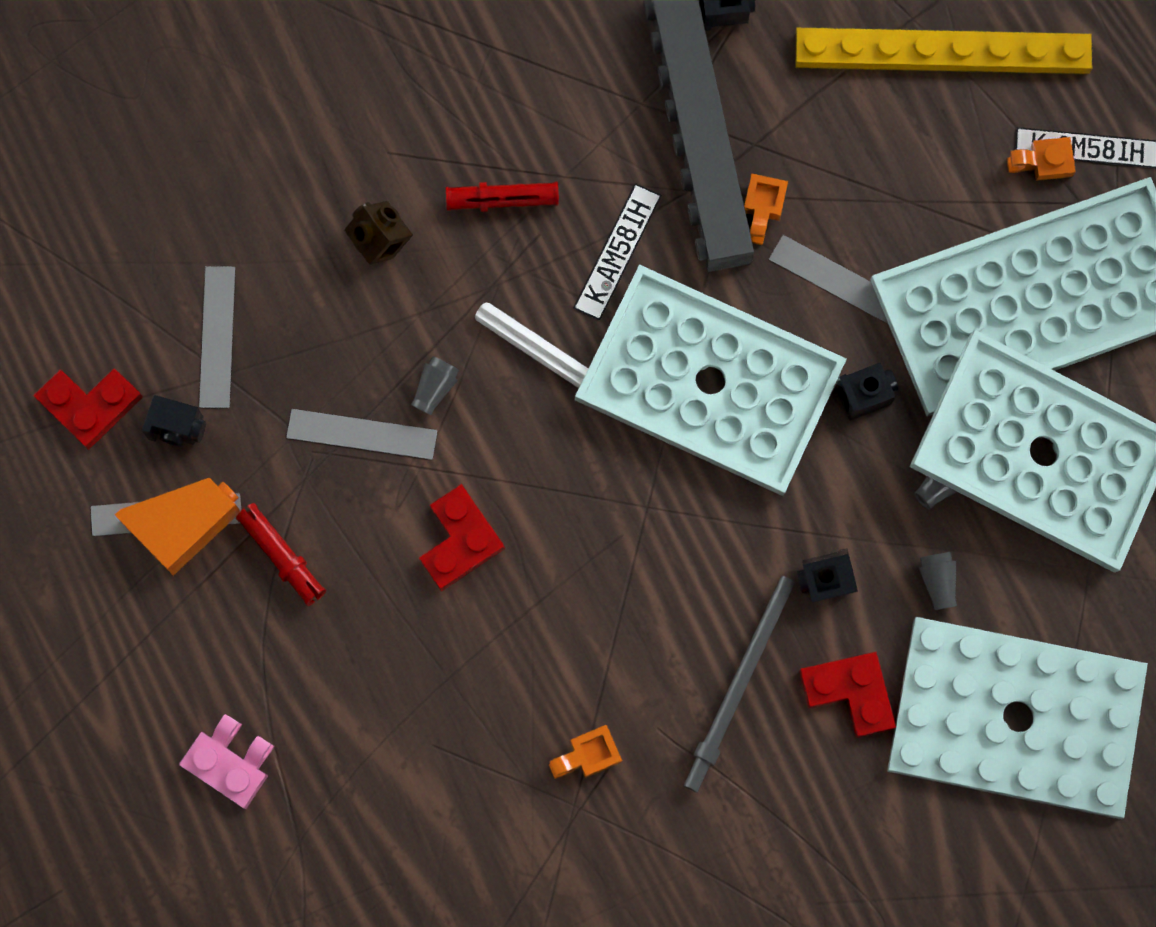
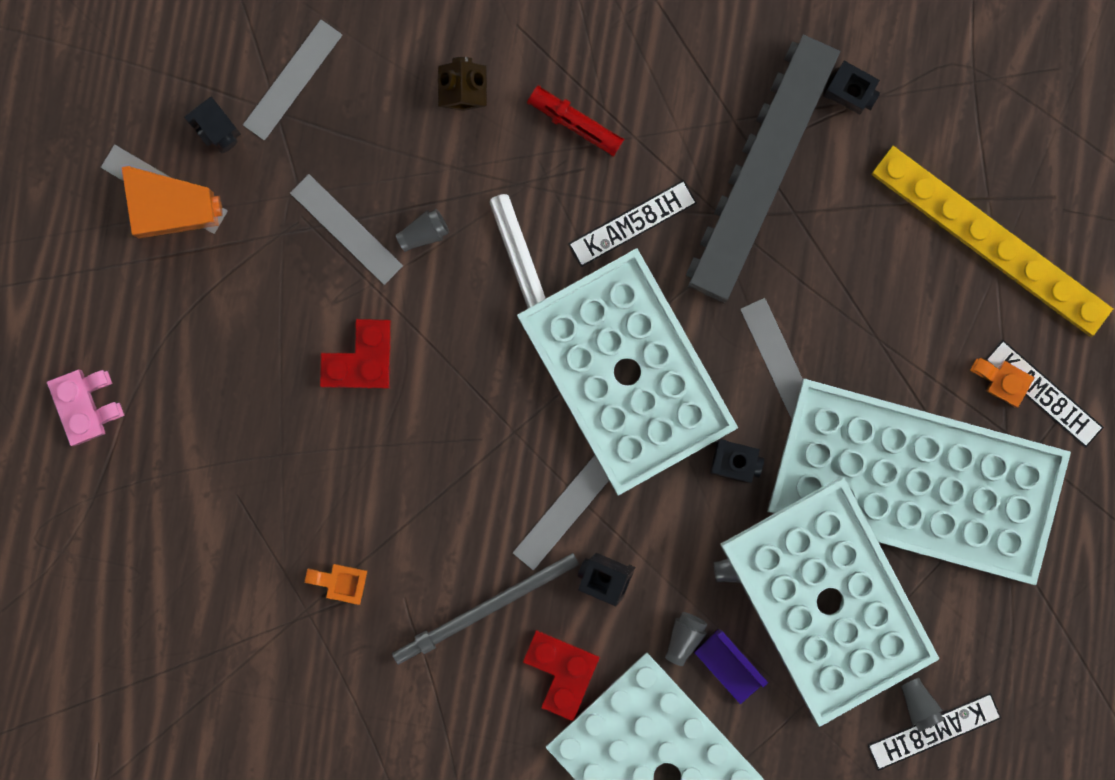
camera: 35 degrees right, 10 degrees up
(90, 414) = (158, 74): red plate -> none
(289, 565) = (223, 279): red pin -> none
(745, 549) = (562, 514): none -> light grey sticker
(765, 202) = (767, 264): orange plate -> none
(999, 574) = (730, 666): none -> dark purple panel

